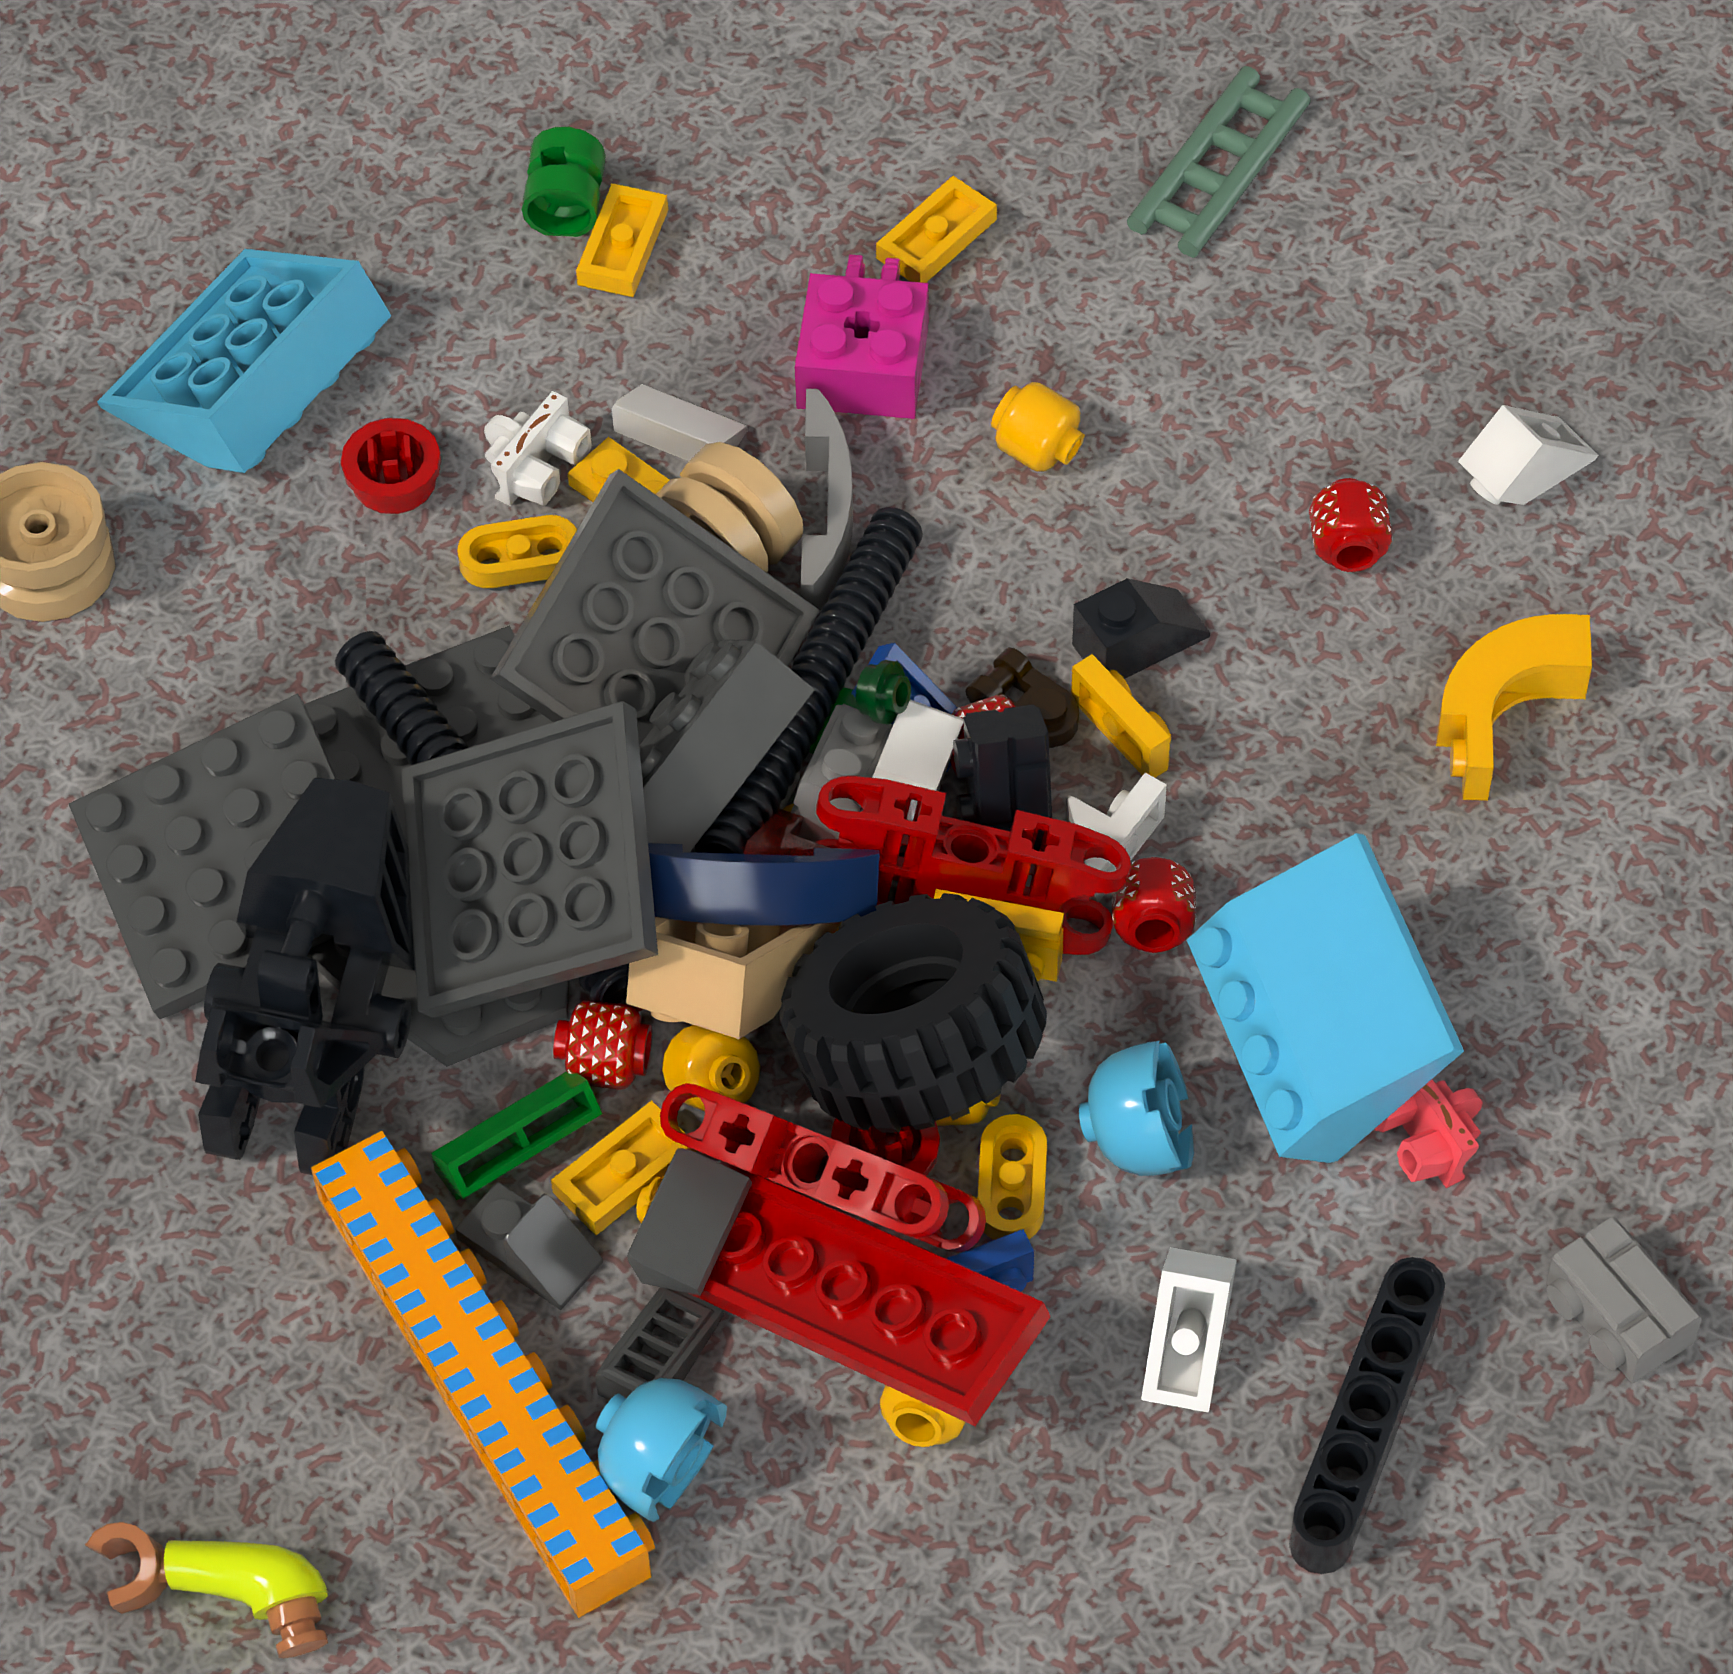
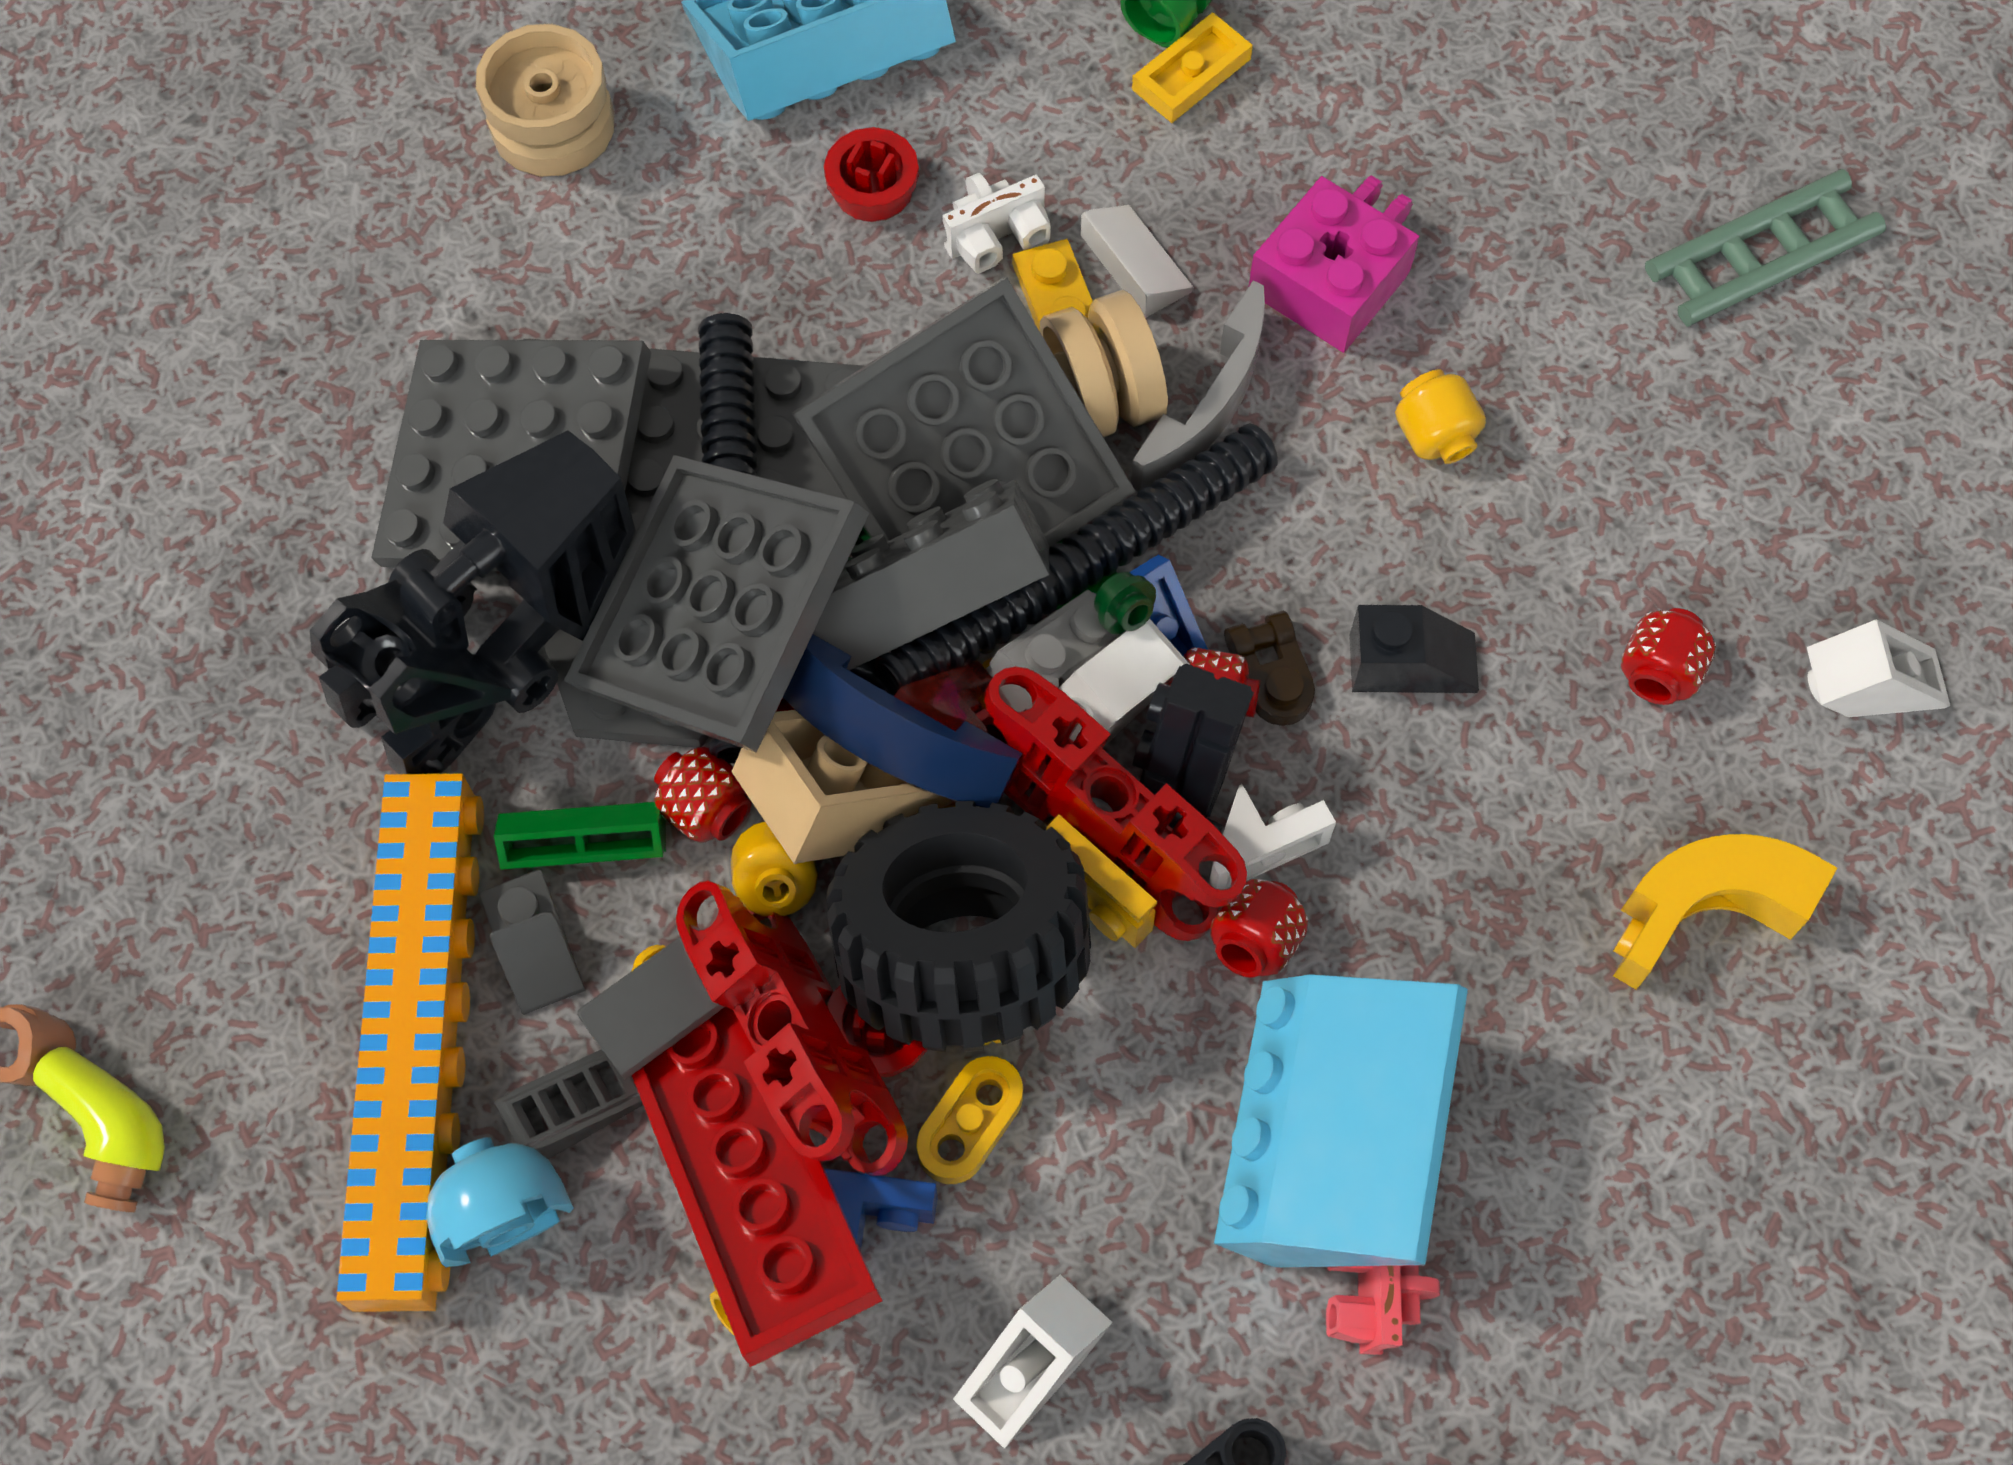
camera: 30 degrees right, 10 degrees up
(517, 548) = (928, 293): yellow plate -> none
(616, 1169) = (639, 915): yellow plate -> none
(937, 230) = (1467, 190): yellow plate -> none
(1128, 726) = (1340, 708): yellow plate -> none
(1138, 1111) = (1115, 1123): medium azure cylinder -> none

